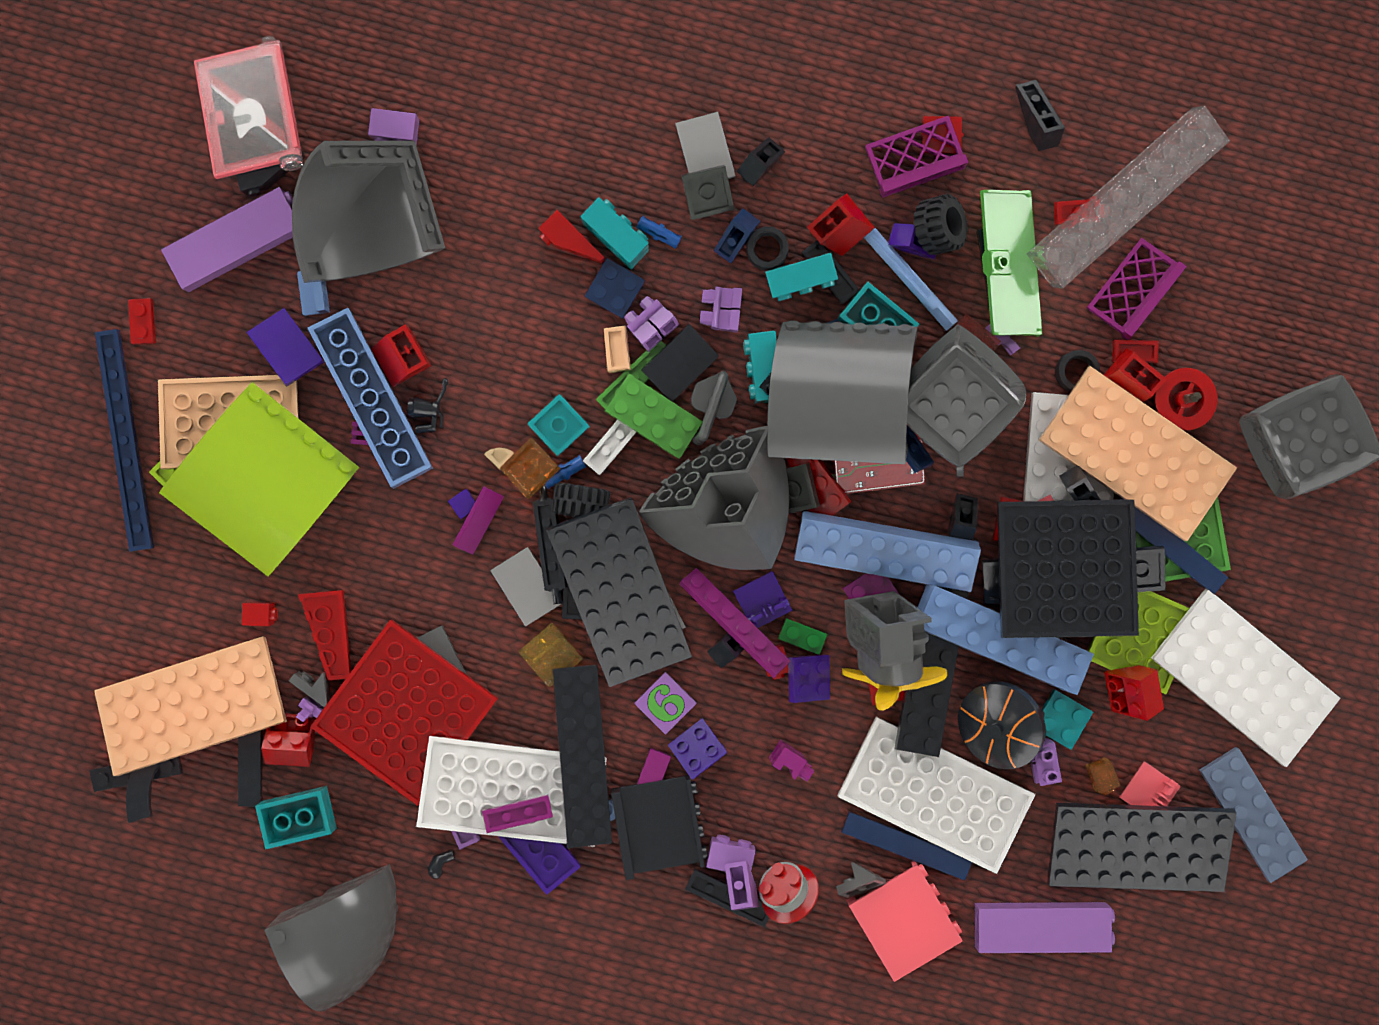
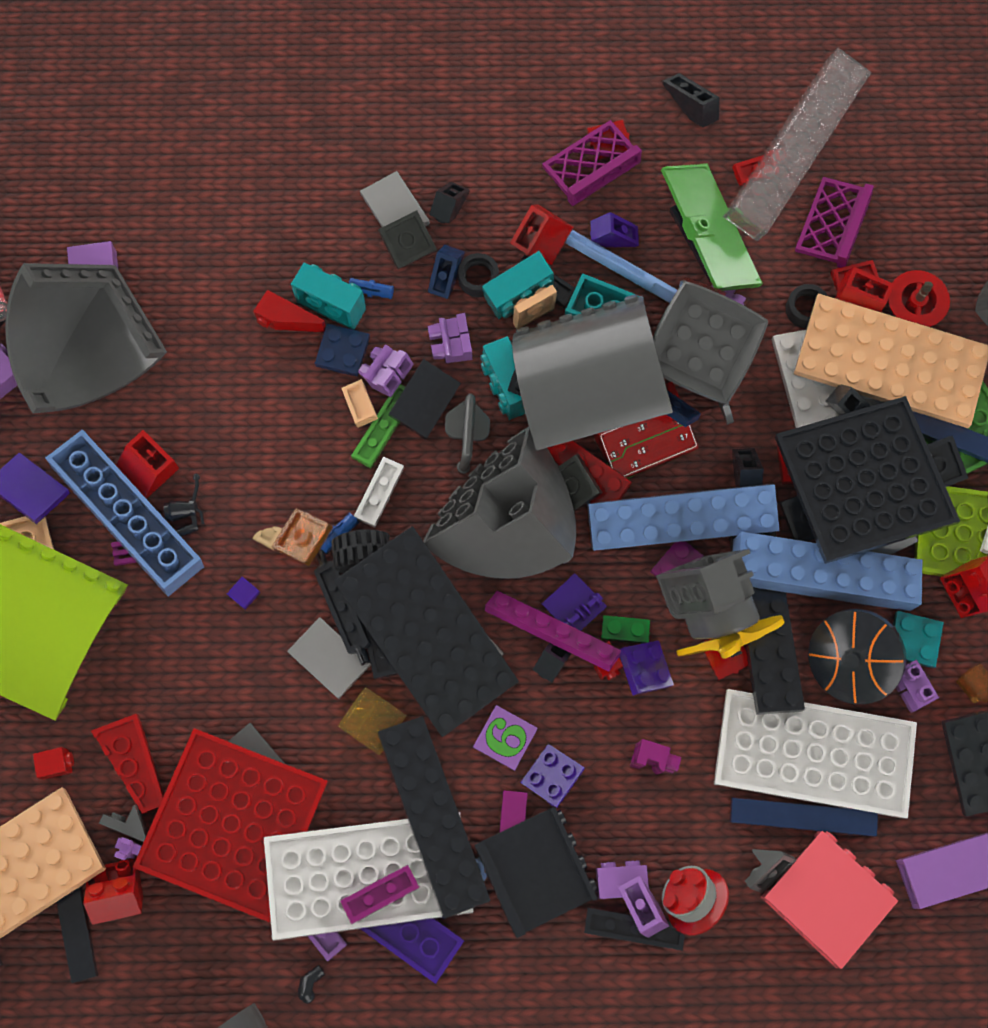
camera: 20 degrees left, 15 degrees down
(296, 817) = (137, 974): teal brick -> none
(313, 297) = (45, 432): medium blue panel -> none
(478, 520) = (262, 604): magenta tile -> none
(558, 425) = (320, 489): teal plate -> none
(653, 416) = (412, 455): bright green plate -> none
(803, 302) = (534, 307): none -> light nougat plate
(940, 224) = (634, 207): black tyre -> none

